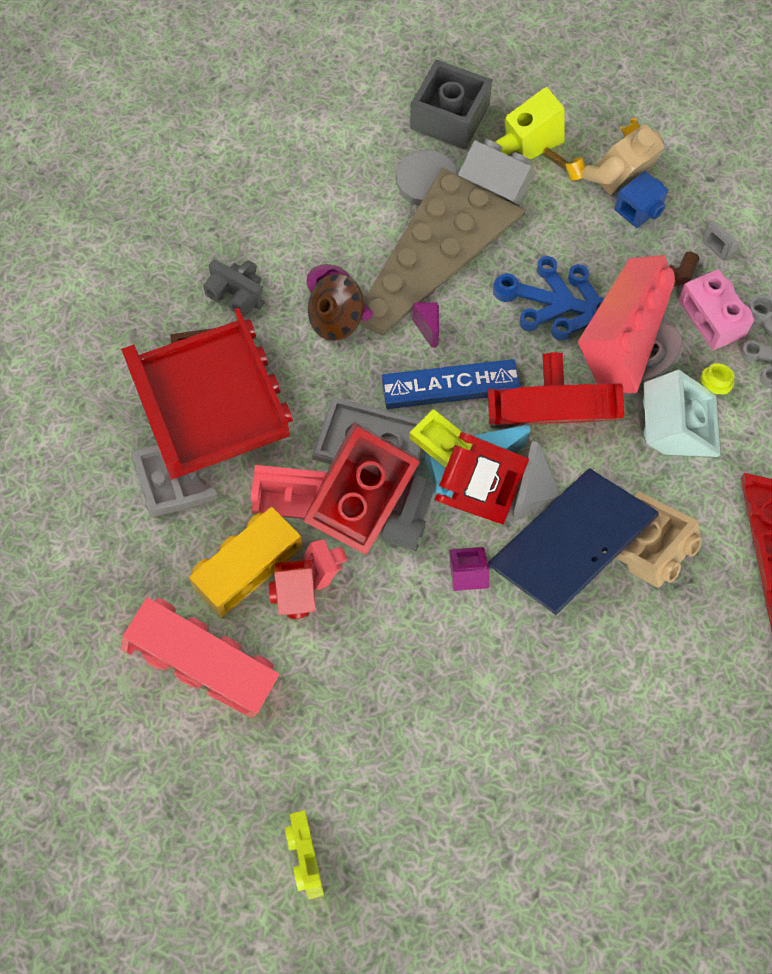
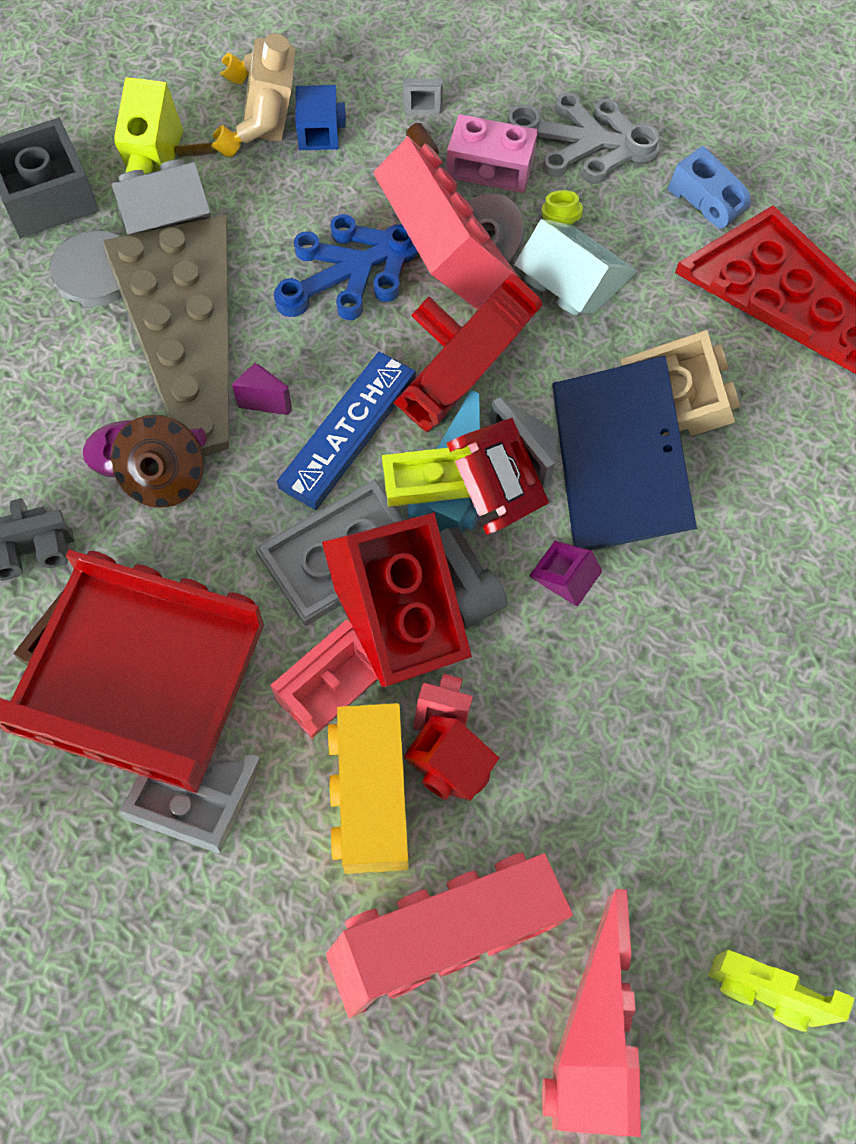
camera: 50 degrees left, 0 degrees up
(195, 782) = (594, 1069): none -> coral wedge

